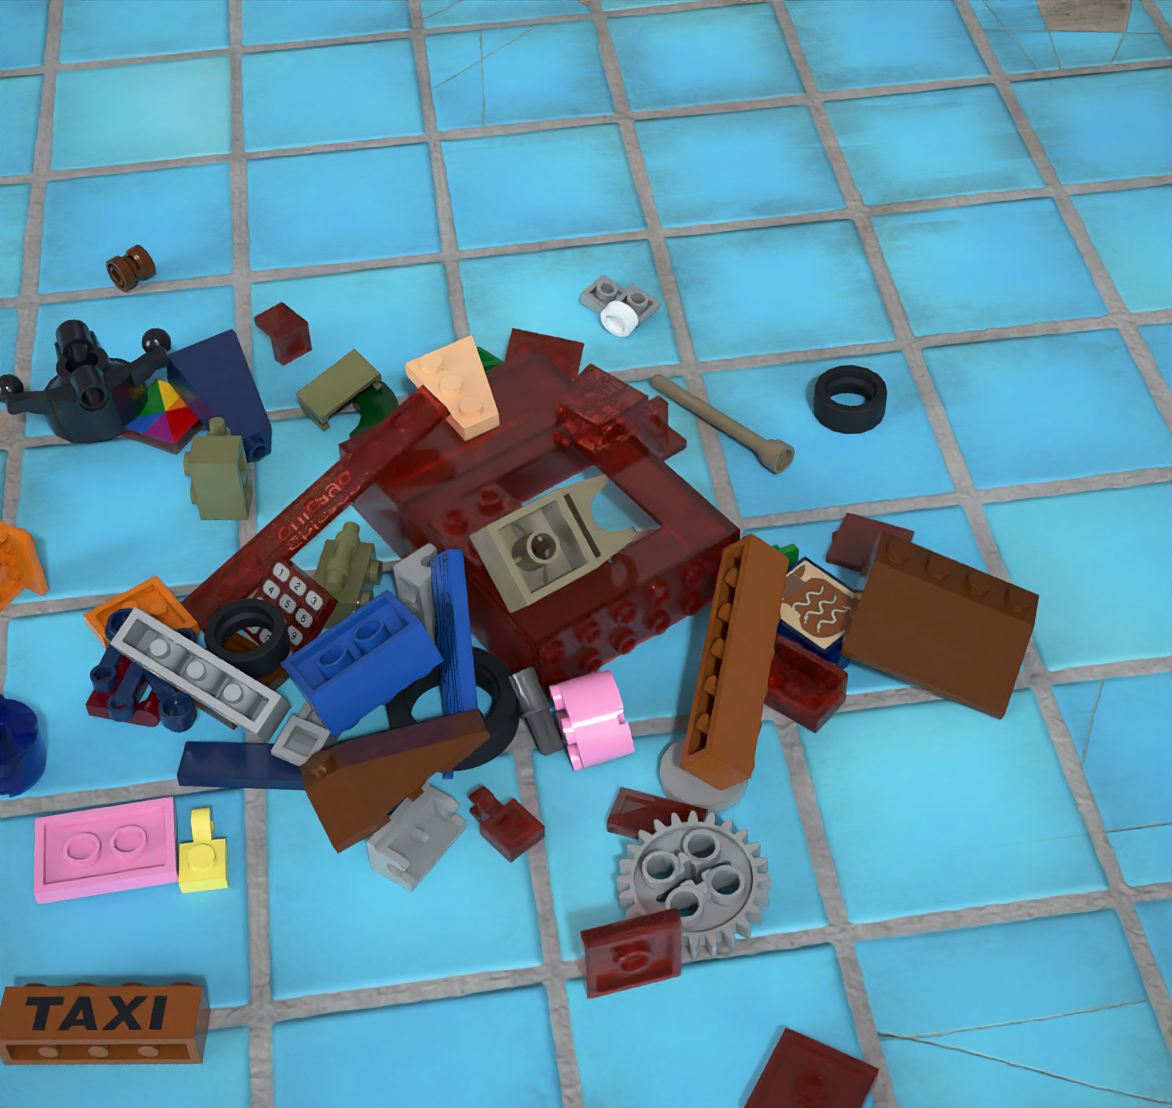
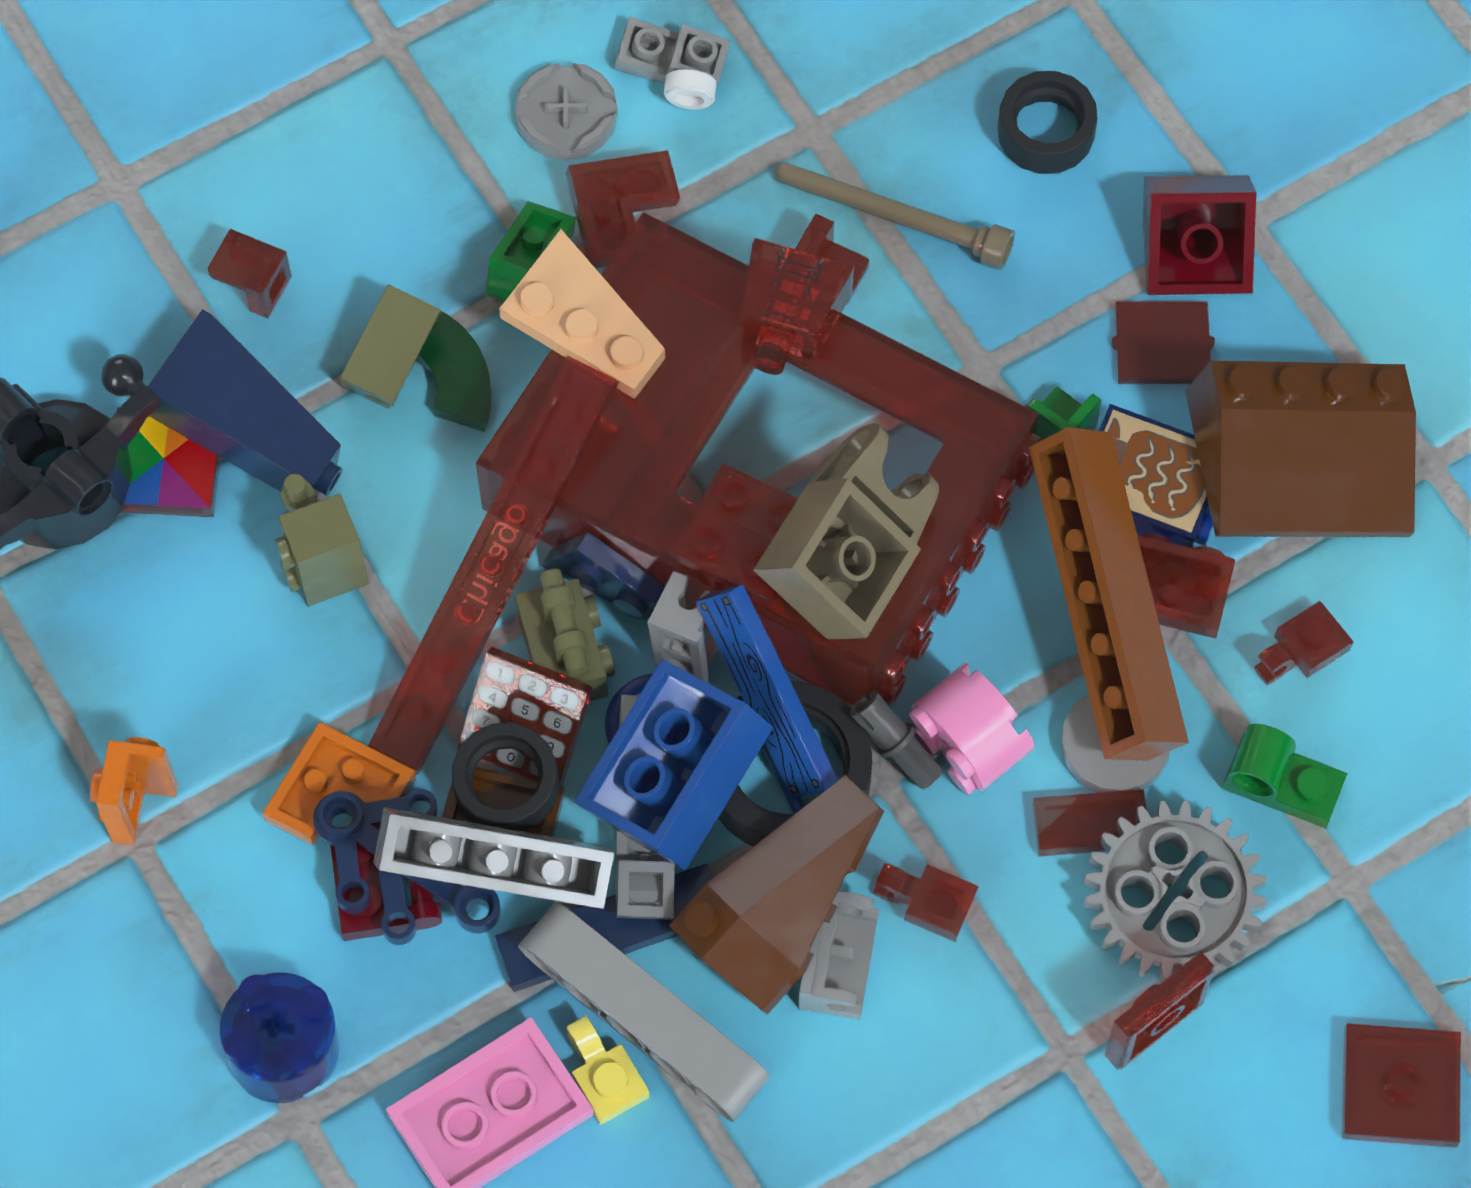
camera: 25 degrees left, 20 degrees up
(253, 822) = (644, 1011): none -> light grey beam
(389, 539) = (606, 574): none -> dark blue wing
(536, 311) = (566, 111): none -> light grey tile
(812, 832) = (1277, 777): none -> green plate
(884, 756) = (1305, 641): none -> clear red plate
(924, 487) = (1199, 234): none -> dark red slope

